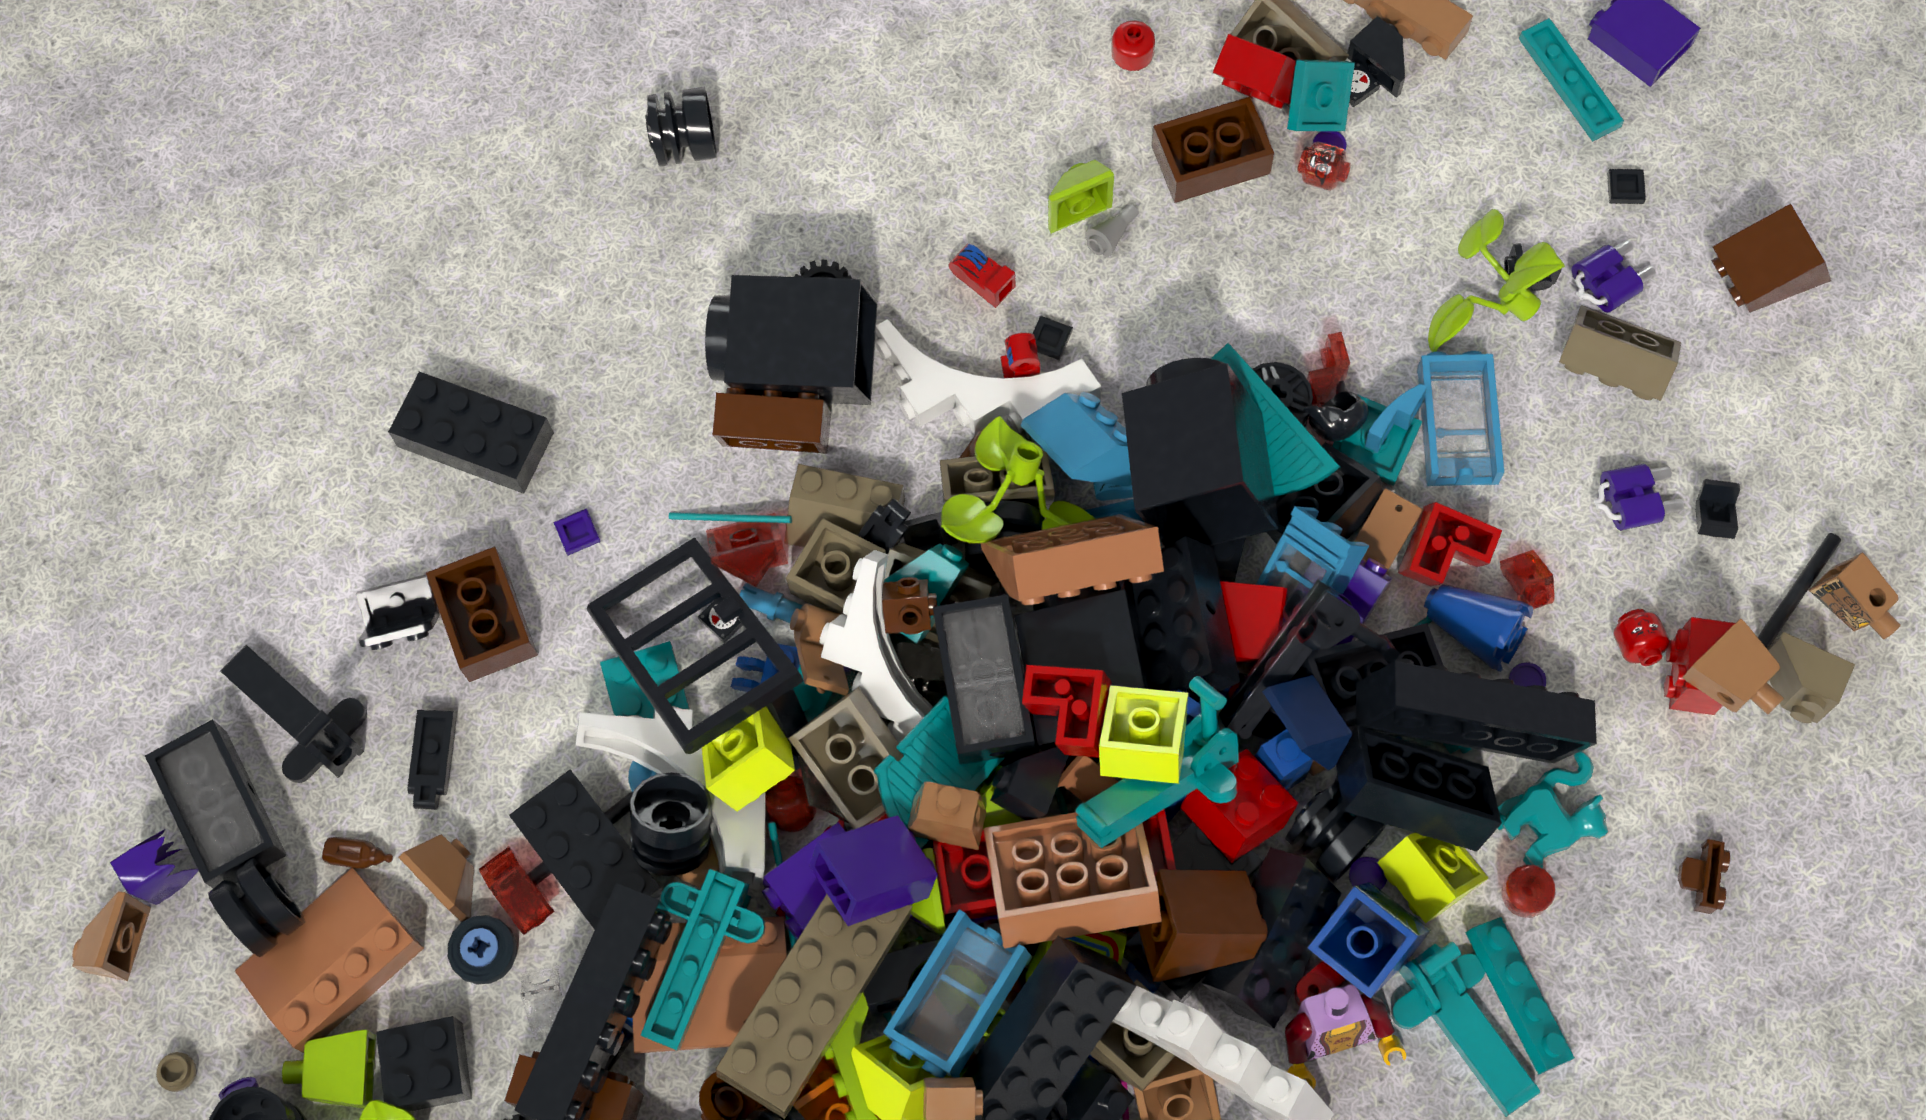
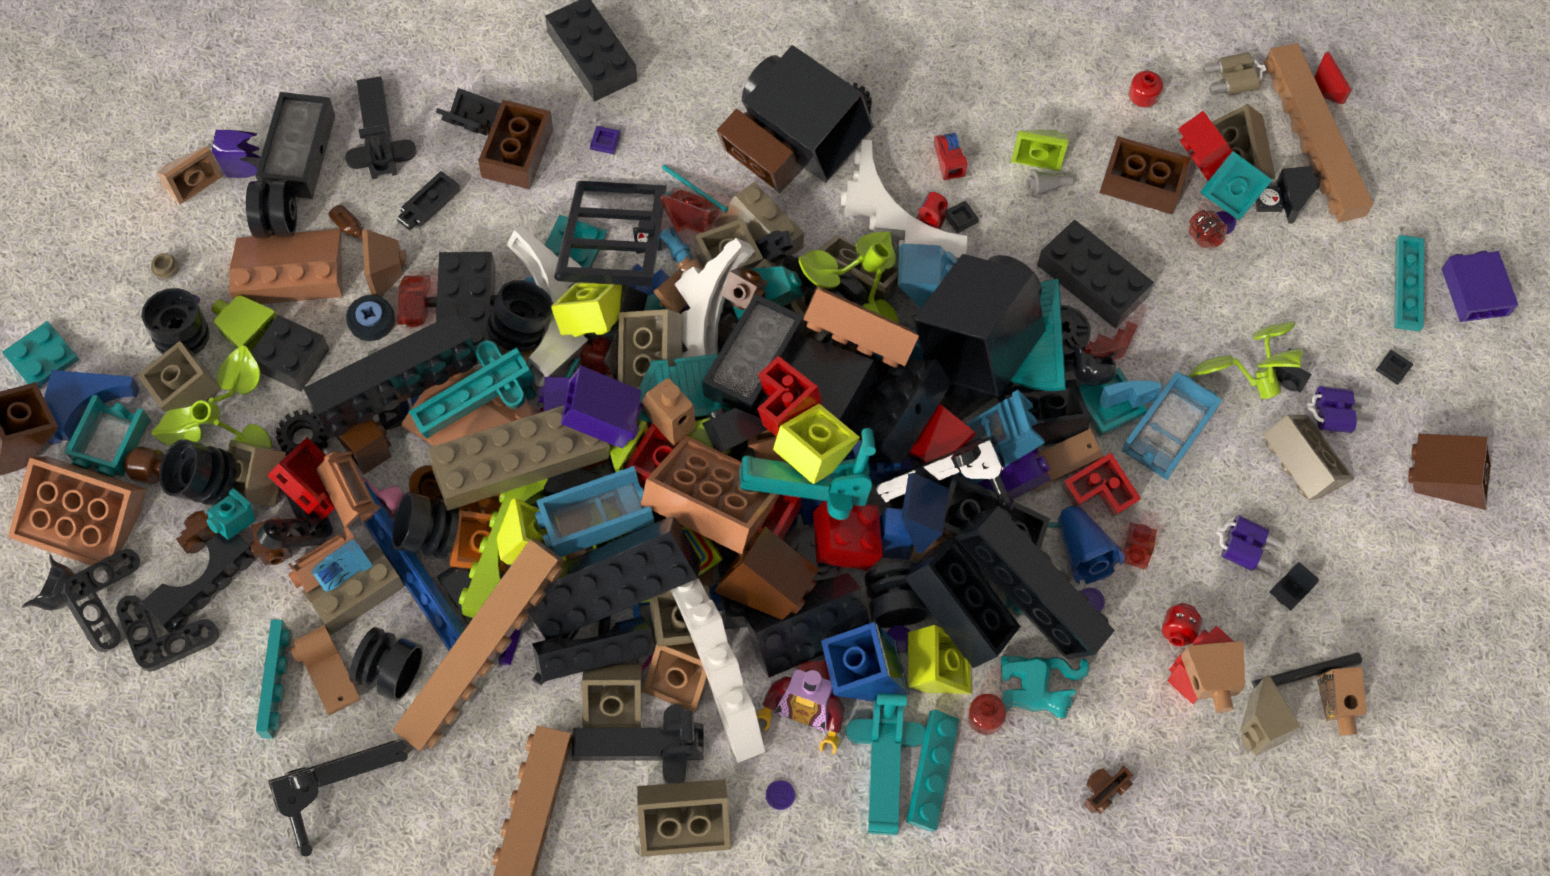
camera: 30 degrees right, 5 degrees down
(1248, 303) = (1095, 273): none -> black brick

